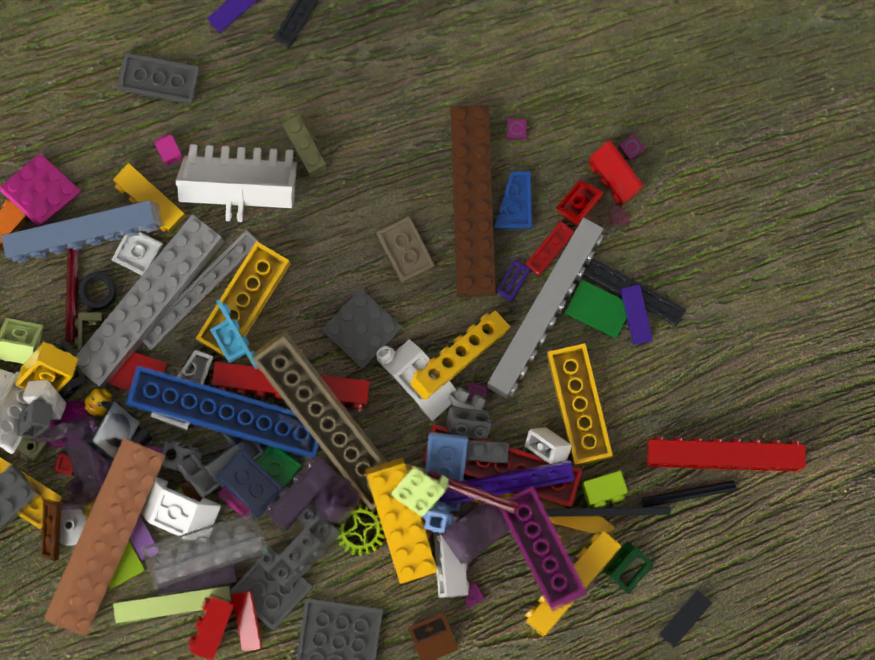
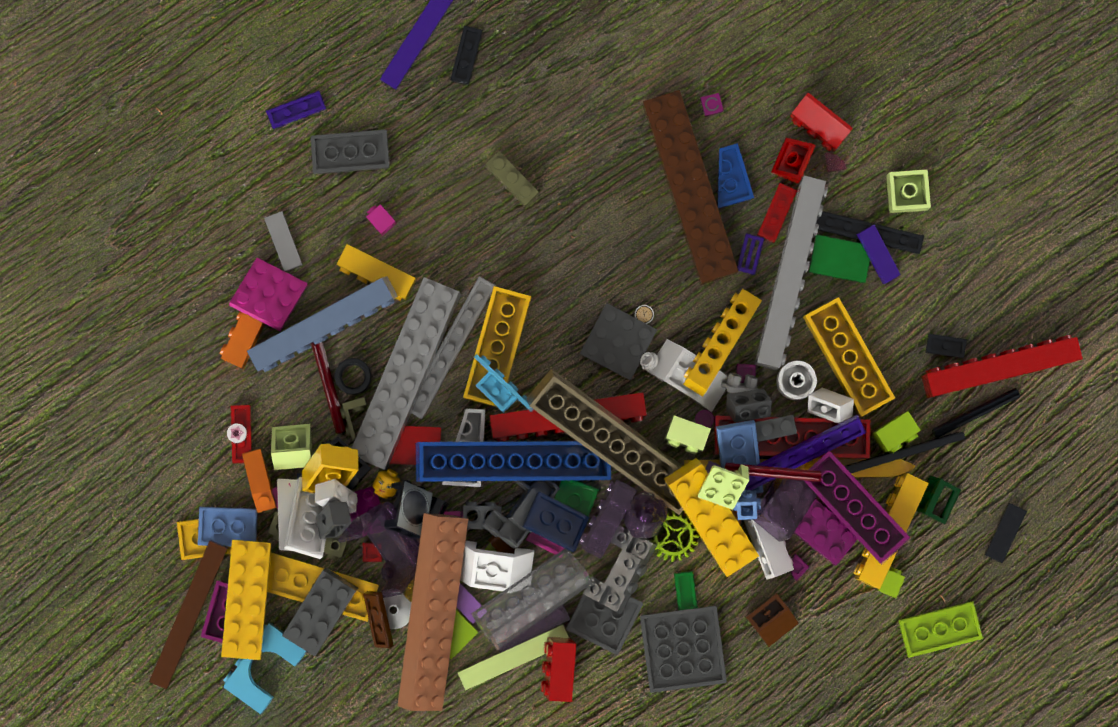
camera: 15 degrees left, 5 degrees up
(70, 145) = (283, 241): none -> light grey tile
(119, 25) = (296, 109): none -> dark purple tile
(137, 252) = (380, 329): white tile -> none
(237, 179) = (457, 230): white piece -> none
(247, 620) = (590, 653): tile -> none
(357, 586) = (685, 590): none -> green tile
(394, 309) = (644, 313): none -> tile
(400, 434) = (686, 434): none -> yellowish green brick
(405, 249) = (638, 252): dark tan tile -> none
(423, 426) = (704, 418): none -> magenta tile
(507, 567) = (825, 533): none -> magenta brick
(519, 402) = (806, 376): none -> white brick
(559, 635) = (892, 583): none -> lime brick
(632, 147) = (828, 91): magenta tile -> none
(677, 421) = (945, 346): none -> black plate
(681, 262) = (908, 191): none -> yellowish green brick

